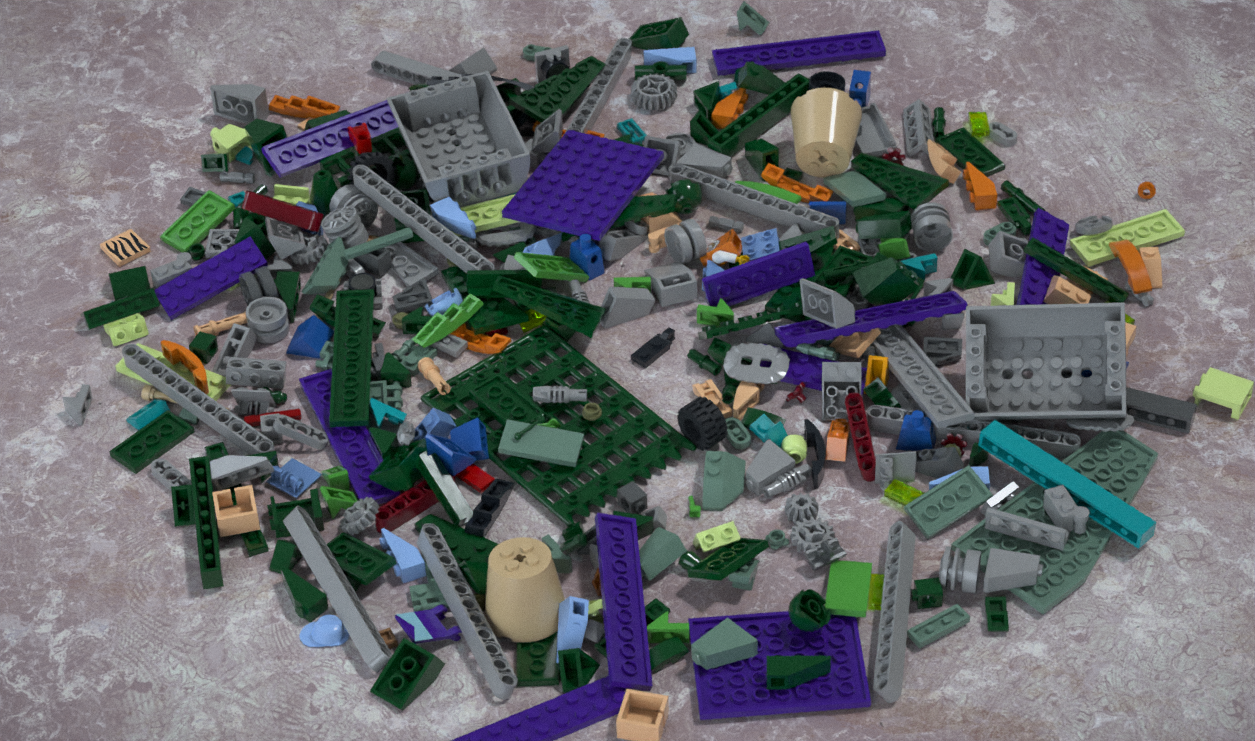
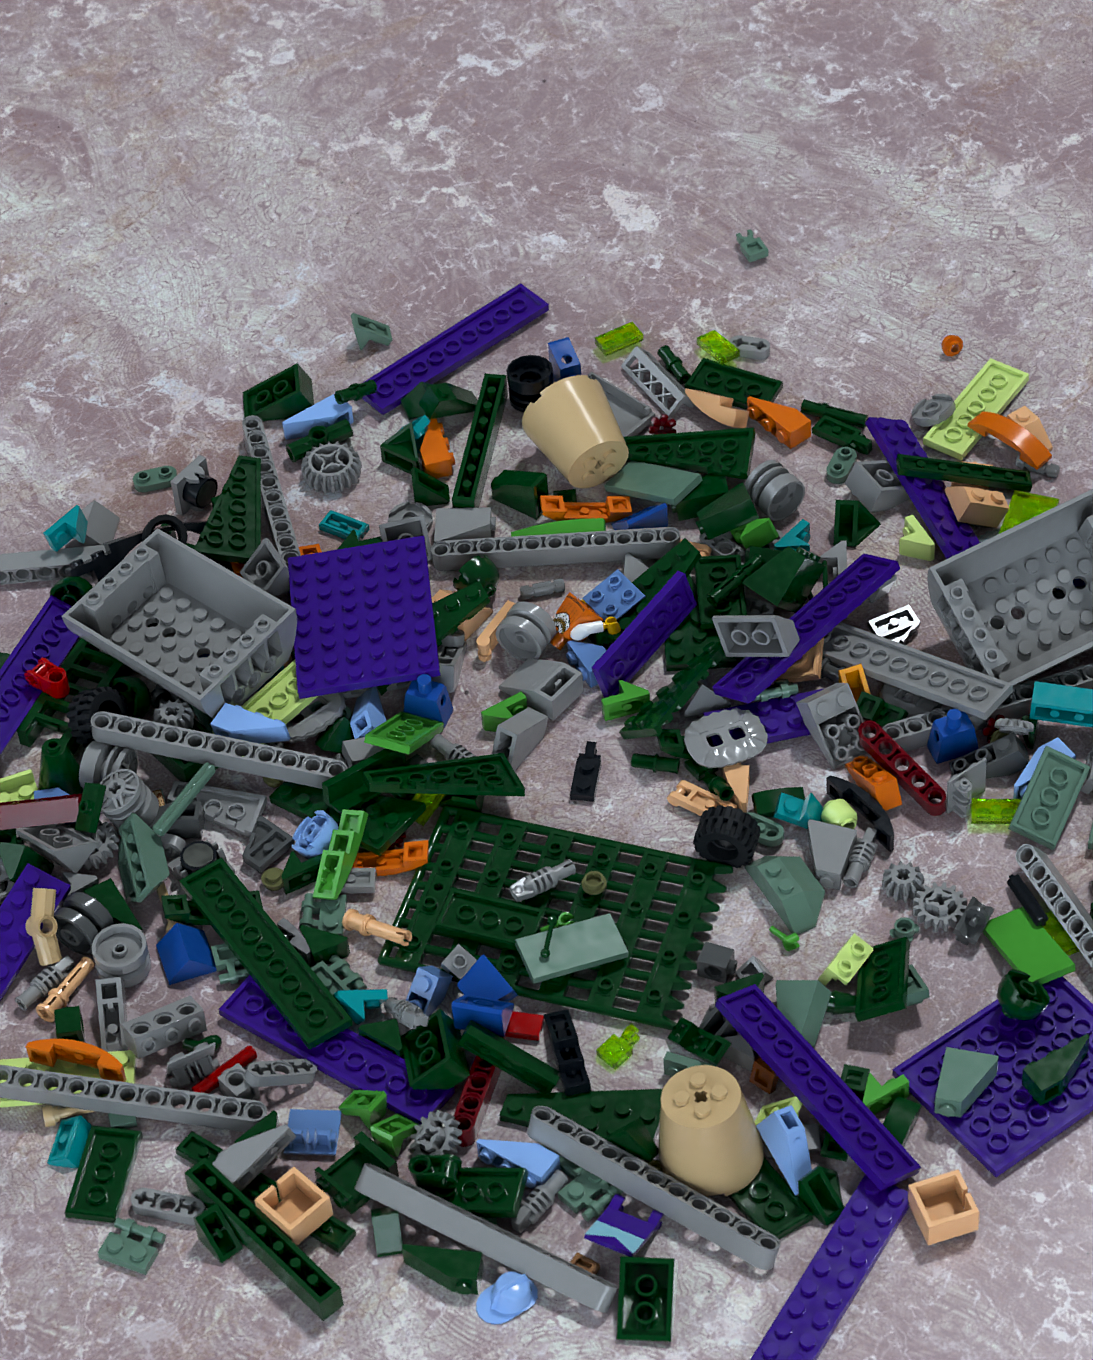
camera: 30 degrees left, 5 degrees up
(127, 494) = (128, 1252): none -> sand green plate
(215, 314) = (48, 979): none -> light grey hinge
(227, 289) = (43, 911): none -> tan piece
(316, 221) = (90, 807): none -> dark green plate
(340, 533) = (434, 1172): none -> dark green piece
(393, 585) = (538, 1201): none -> light grey hinge
(414, 190) = (175, 714): none -> light grey gear
(450, 55) = (69, 526): none -> teal slope
(460, 415) = (458, 962): none -> light grey bracket
(506, 71) = (166, 519): none -> black tyre
(524, 520) = (617, 1050): none -> clear neon green plate
(705, 50) = (355, 392): none -> dark green pin
(797, 393) = (786, 751): dark red plant -> none
(875, 559) = (1027, 900): none -> black axle
(916, 91) = (619, 338): none -> clear neon green plate
(959, 443) = (1017, 726): none -> light grey gear
(1061, 71) = (752, 248): none -> sand green plate

